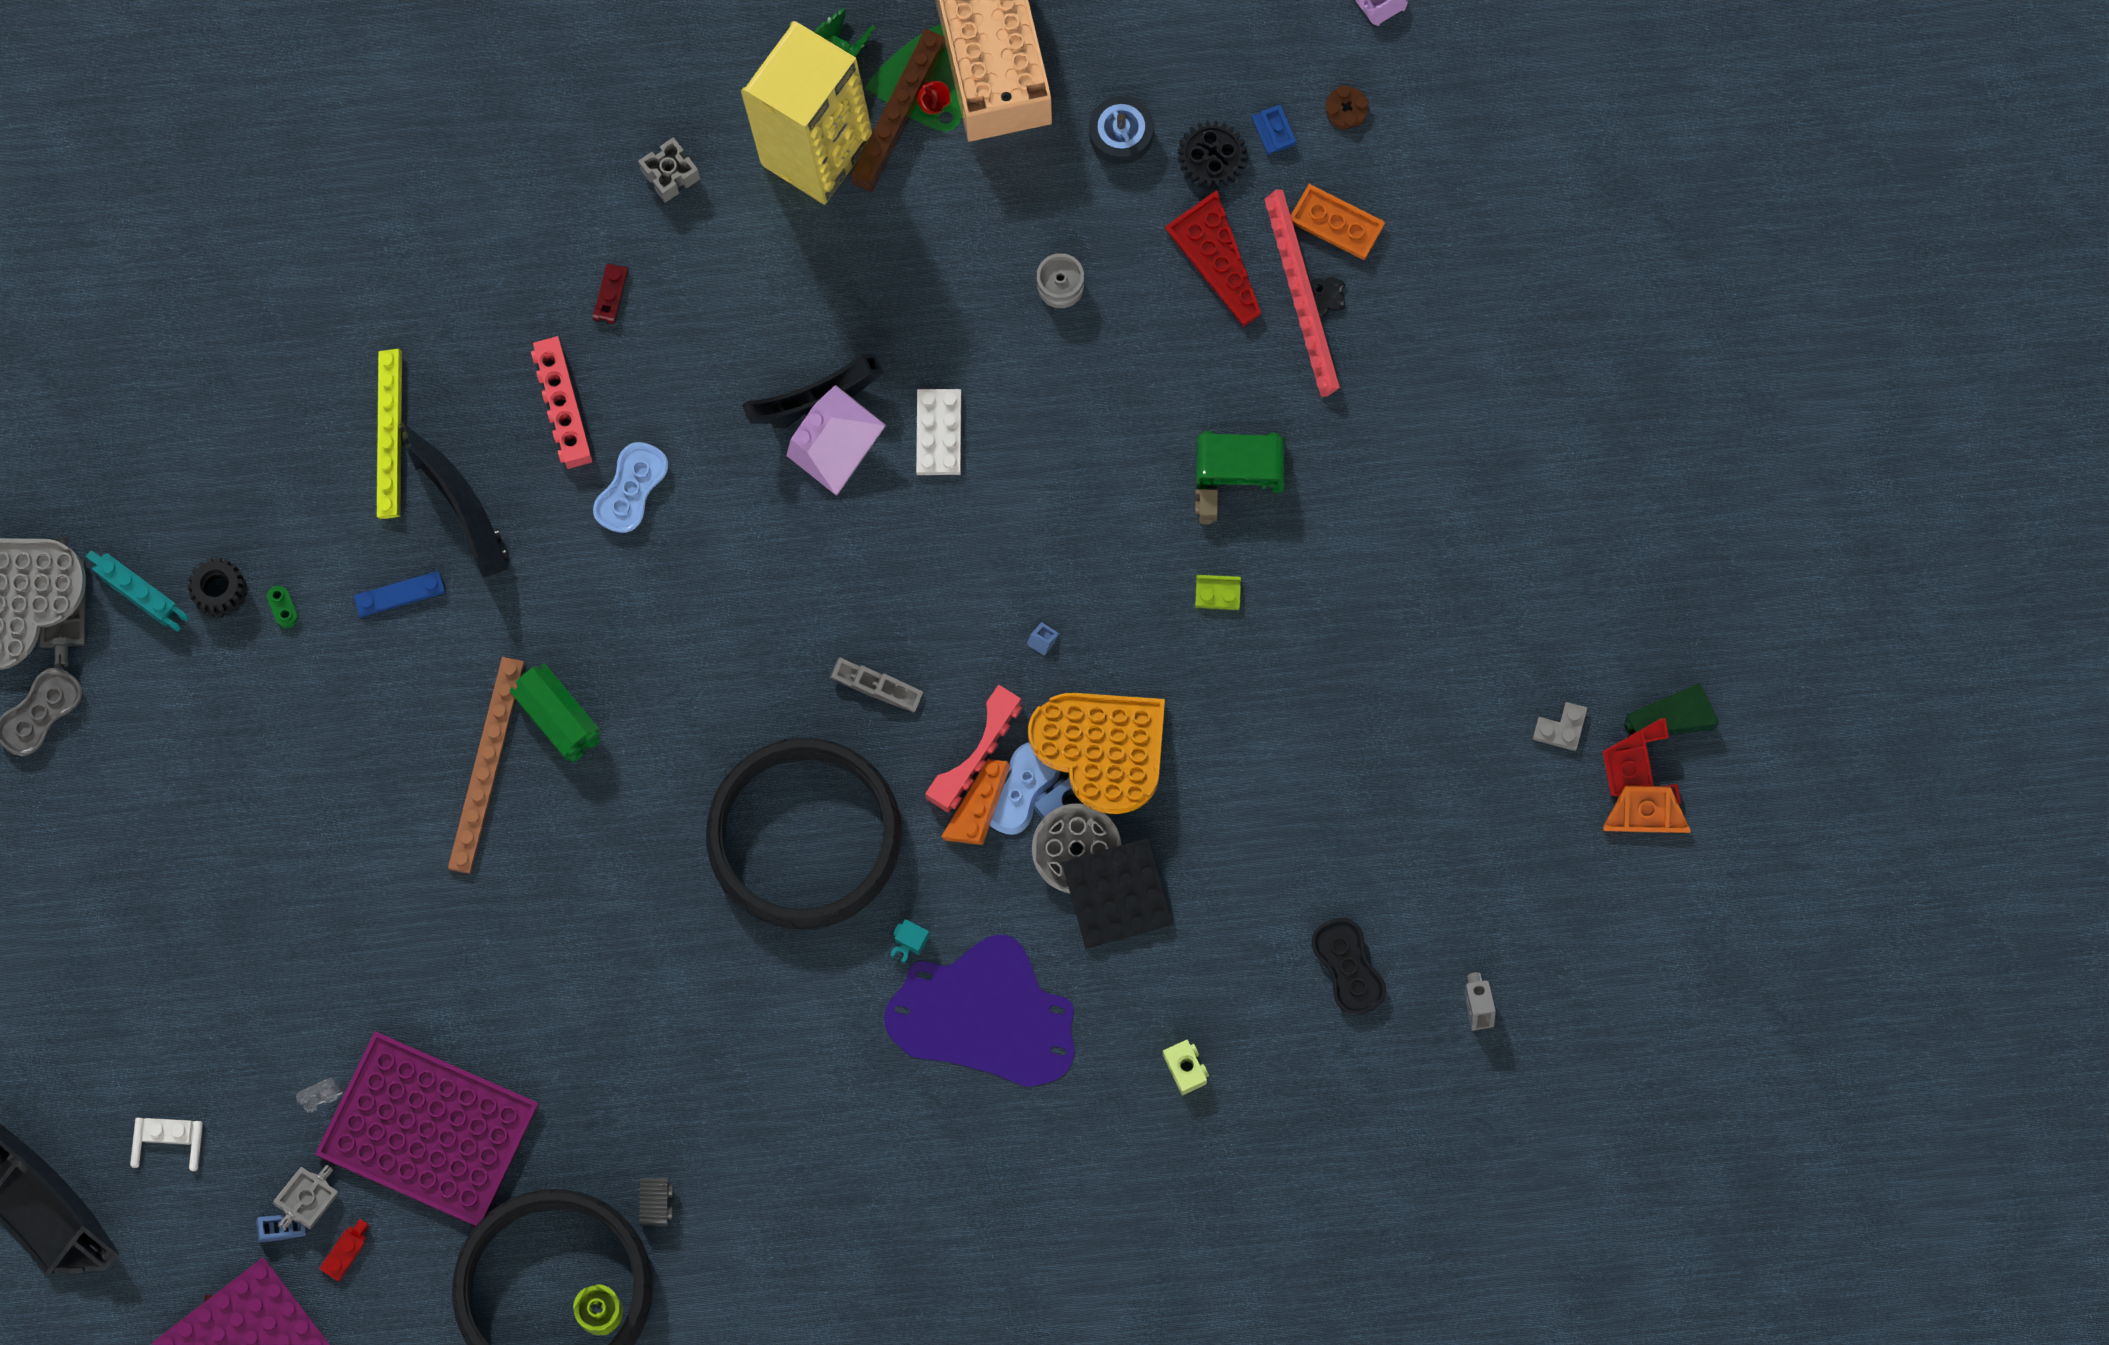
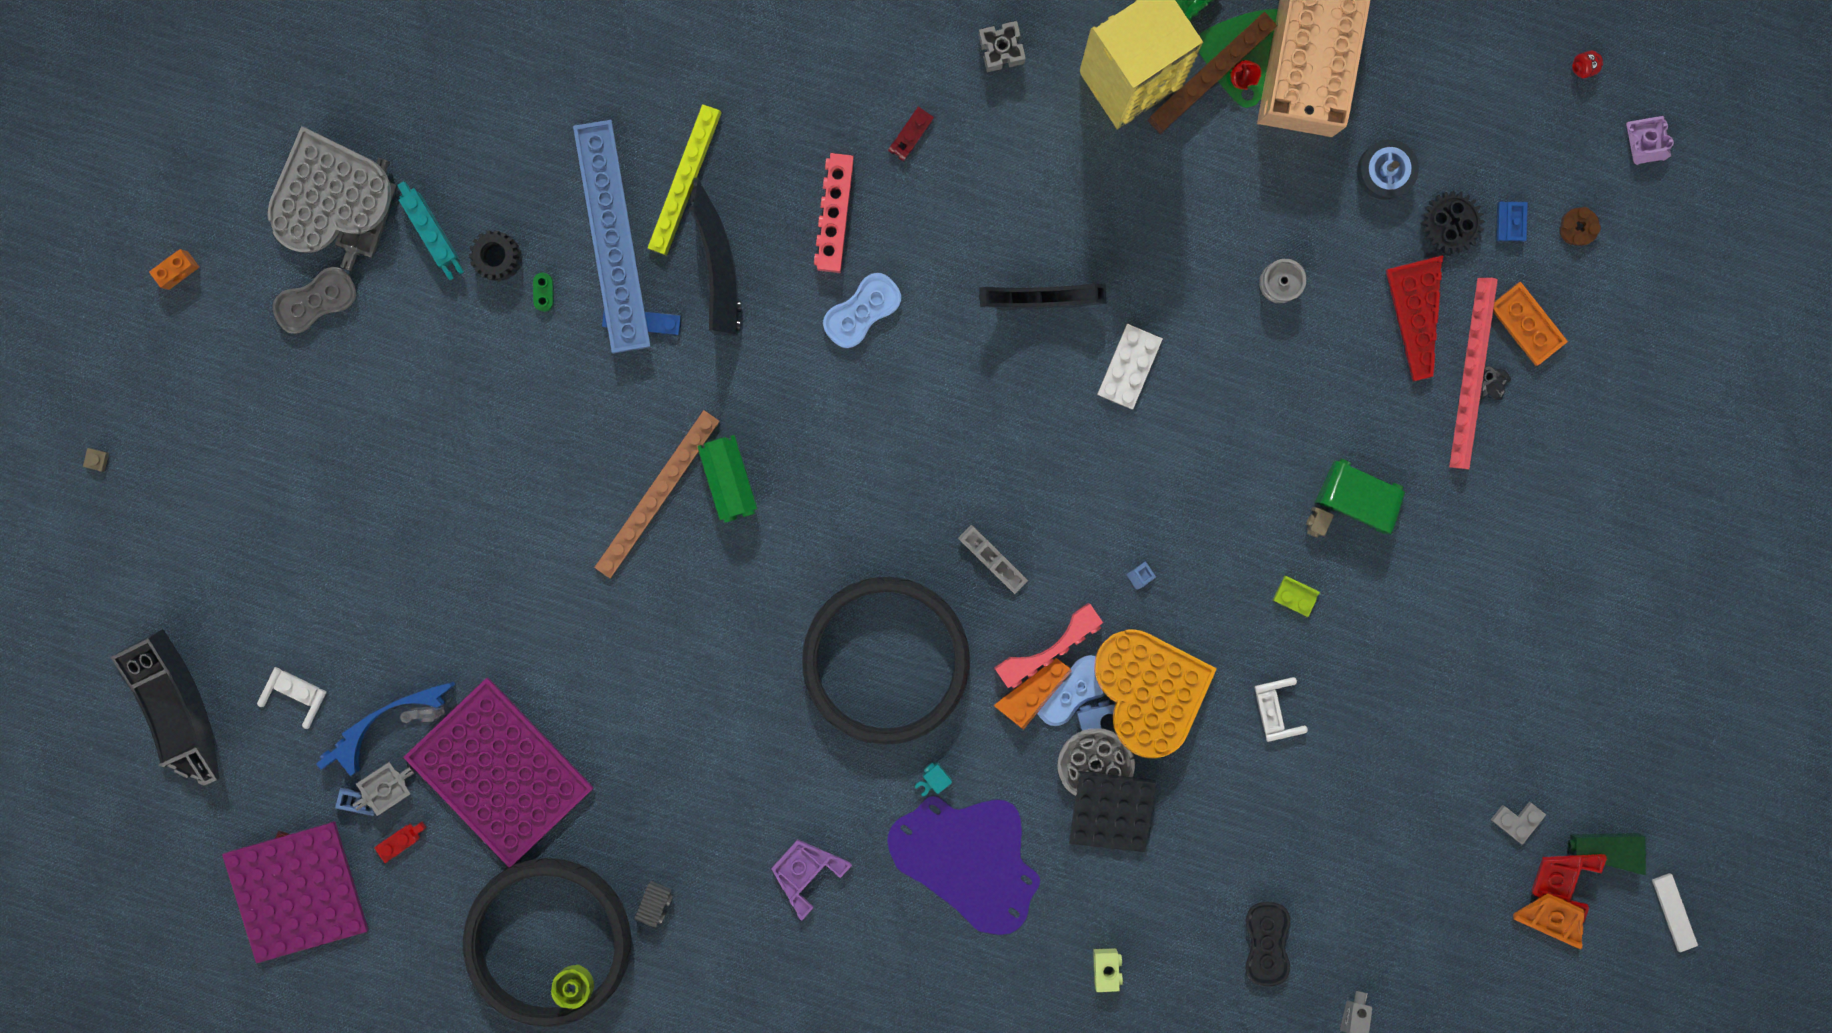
camera: 20 degrees right, 15 degrees up
(250, 1170) = (348, 750): none -> blue slope
(334, 519) = (611, 236): none -> medium blue plate
(801, 1095) = (799, 867): none -> medium lavender wing
(834, 439) = (1044, 342): lavender slope -> none
(1243, 720) = (1271, 711): none -> white plate
(1774, 754) = (1674, 912): none -> white tile

